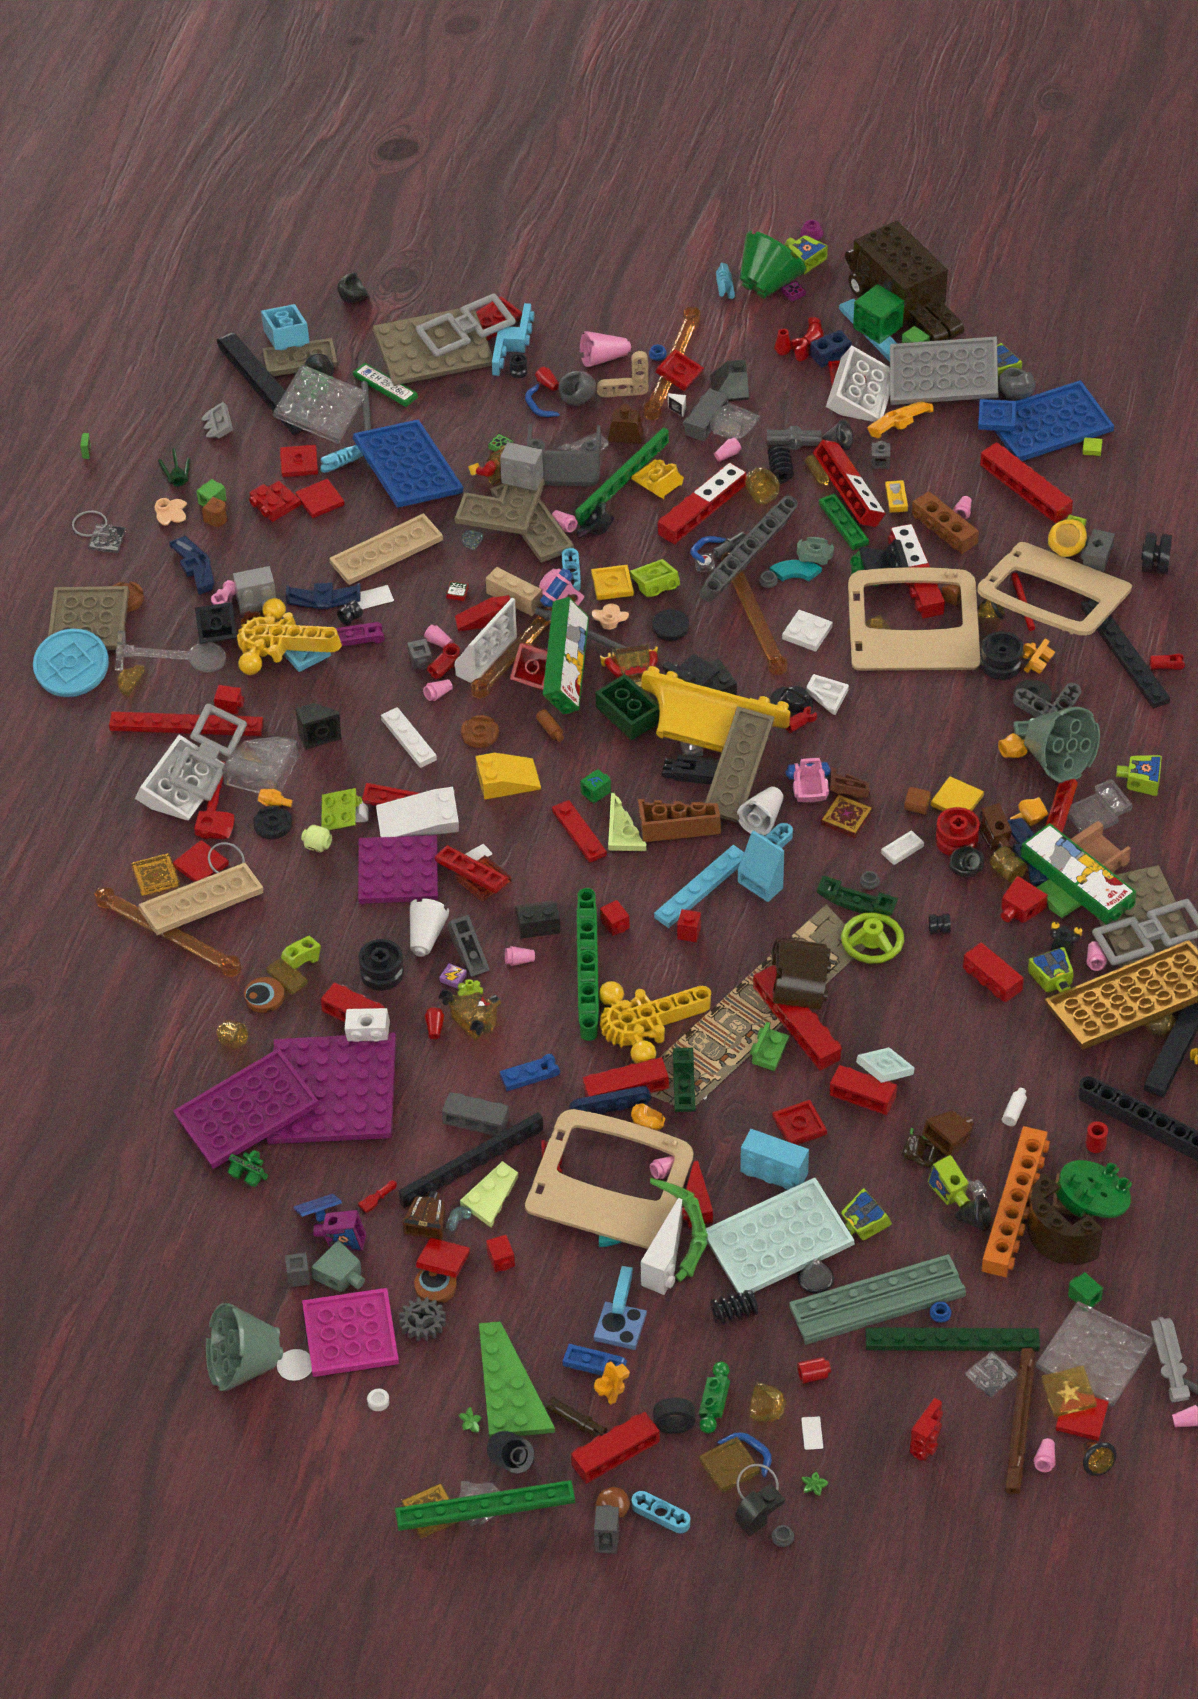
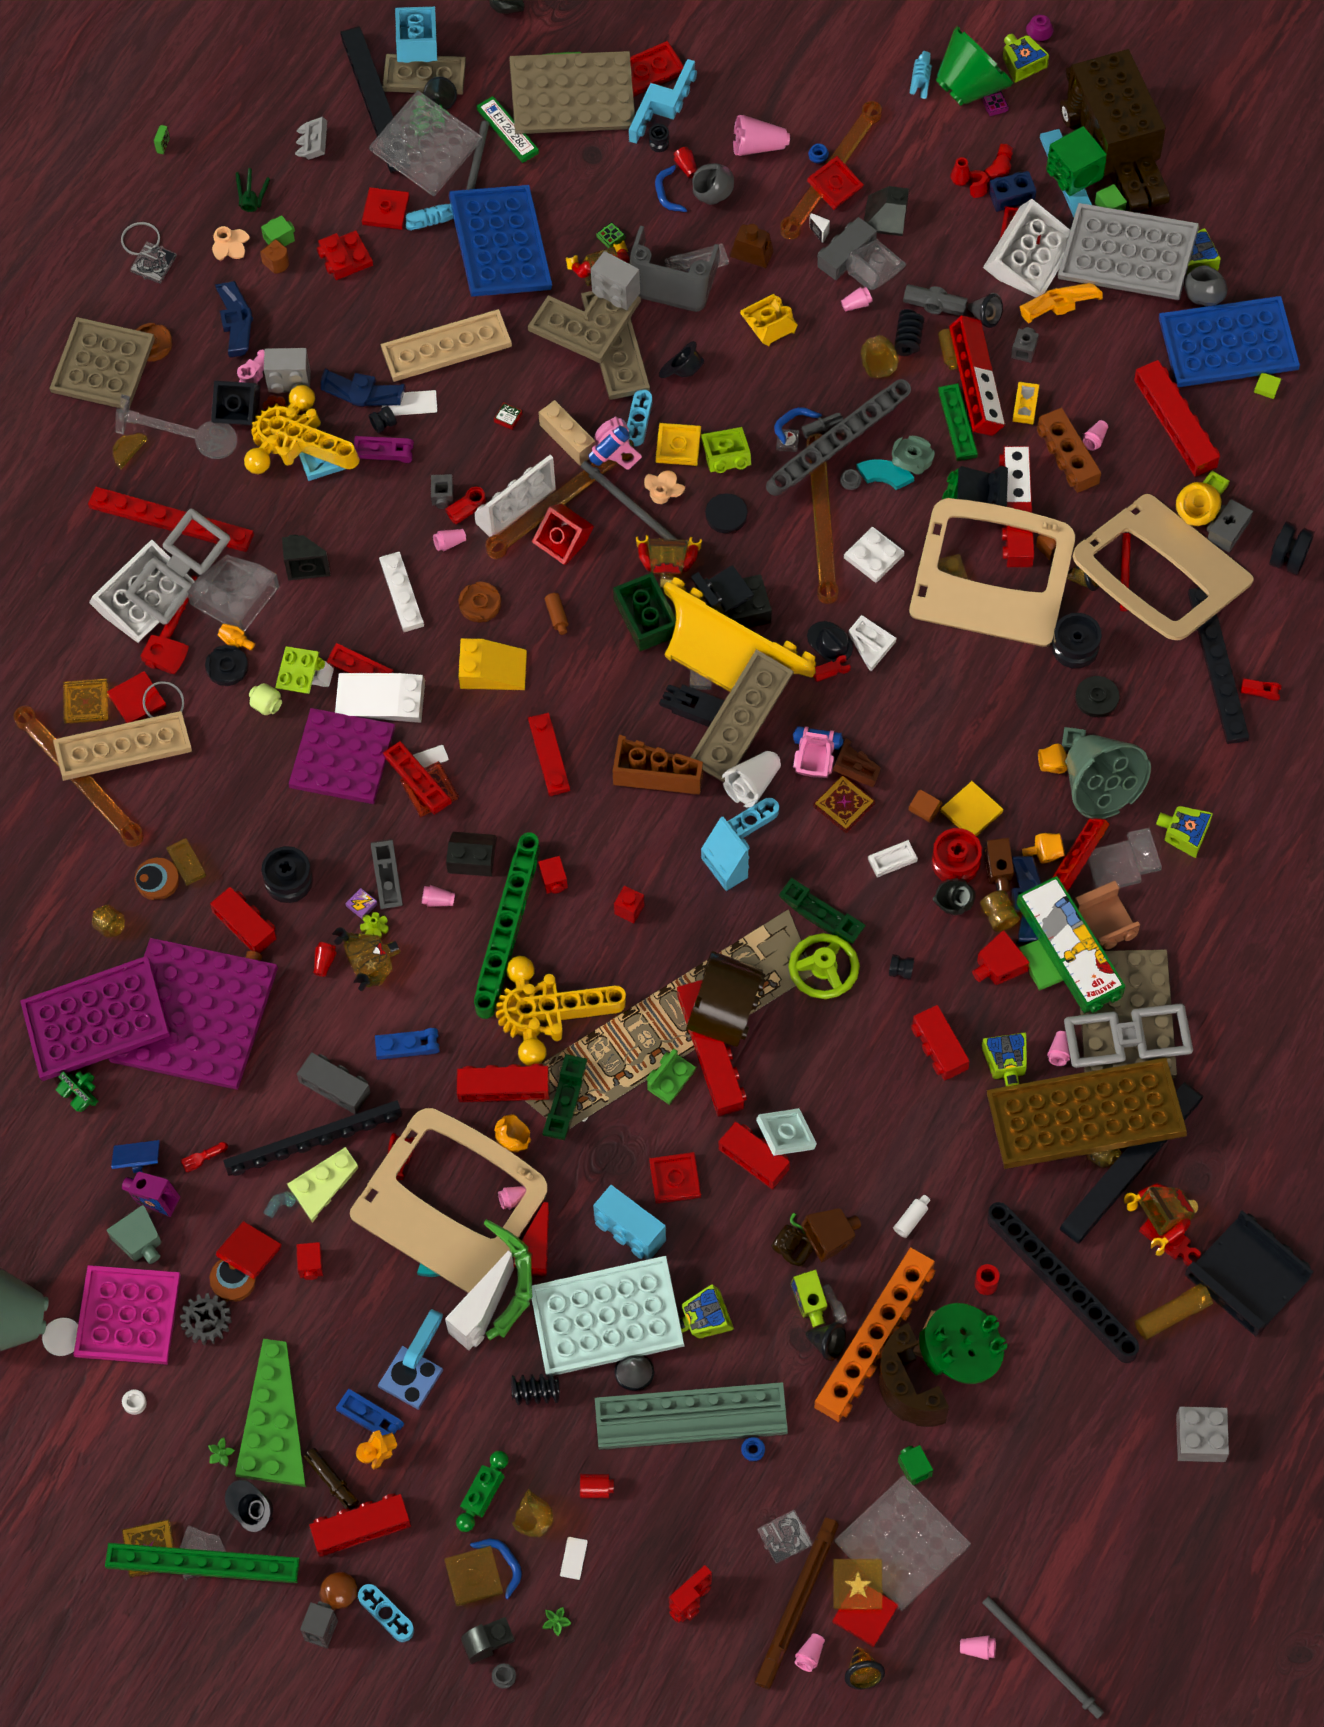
camera: 15 degrees right, 15 degrees up
(70, 662) = (68, 415): medium azure plate -> none
(229, 699) = (222, 500): red brick -> none
(297, 1269) = (92, 1228): dark grey brick -> none
(299, 952) = (207, 839): lime leg -> none
(320, 498) = (394, 262): red tile -> none
(367, 1024) = (236, 943): white brick -> none
(425, 925) = (346, 839): white cone -> none
(426, 1217) = (246, 1196): reddish brown torso -> none
(437, 636) = (467, 470): bright pink cone -> none
(465, 325) = (612, 75): light grey bar -> none
(471, 539) = (543, 352): clear light blue tile -> none
(480, 614) = (526, 454): red slope -> none
(565, 655) = (594, 534): brick -> none
(566, 521) = (650, 353): bright pink cone -> none
(595, 786) = (582, 702): green brick -> none
(612, 1101) = (482, 1103): dark blue plate -> none
(622, 832) = (594, 766): yellowish green wing -> none
(623, 475) = (730, 308): green tile -> none
(635, 381) = (777, 192): tan beam -> none
(674, 1424) = (430, 1506): black tyre -> none
(700, 886) = (657, 855): medium azure plate -> none
(701, 503) = (806, 363): red brick -> none
(753, 1465) = (495, 1586): light grey piece -> none
(869, 880) = (843, 892): dark grey plate -> none
(952, 1339) = (756, 1484): dark green plate -> none
(997, 415) = (1169, 324): blue plate -> none
(1032, 652) = (1125, 644): light orange hips -> none
(1047, 707) = (1108, 722): dark grey beam -> none
(1064, 938) = (1030, 1022): black piece -> none
(1170, 1356) = (980, 1570): light grey piece -> none

